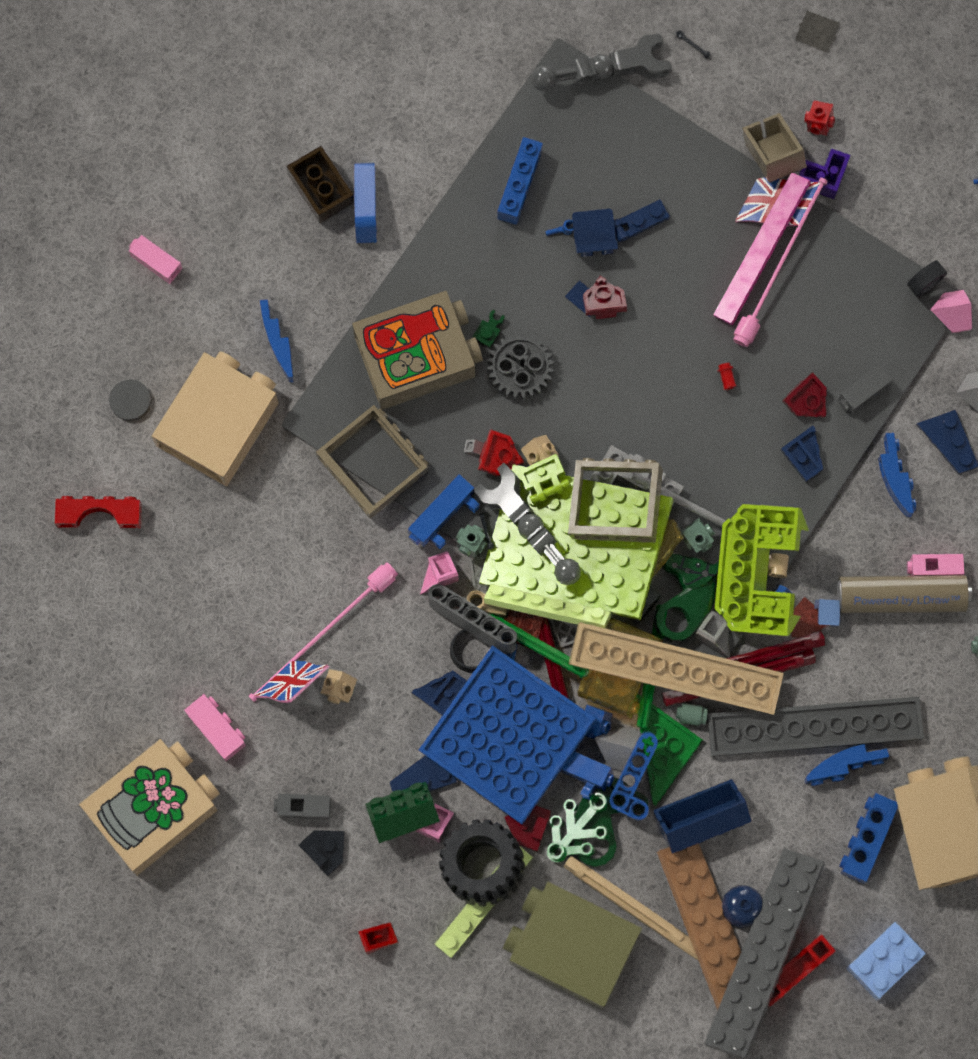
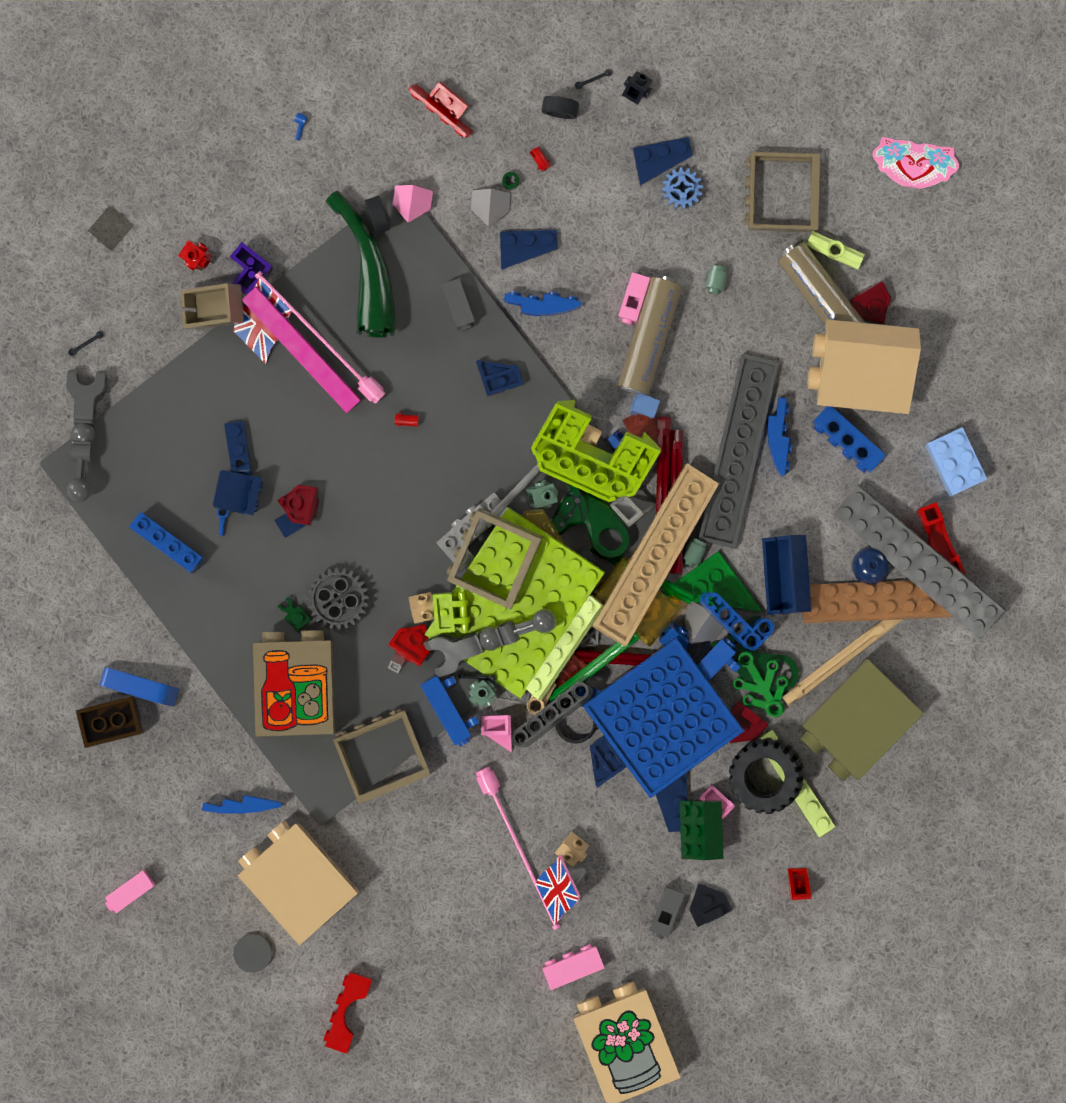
camera: 75 degrees left, 10 degrees up
(807, 398) = (449, 357): dark red plate -> none
(843, 303) = (375, 298): none -> dark green brick

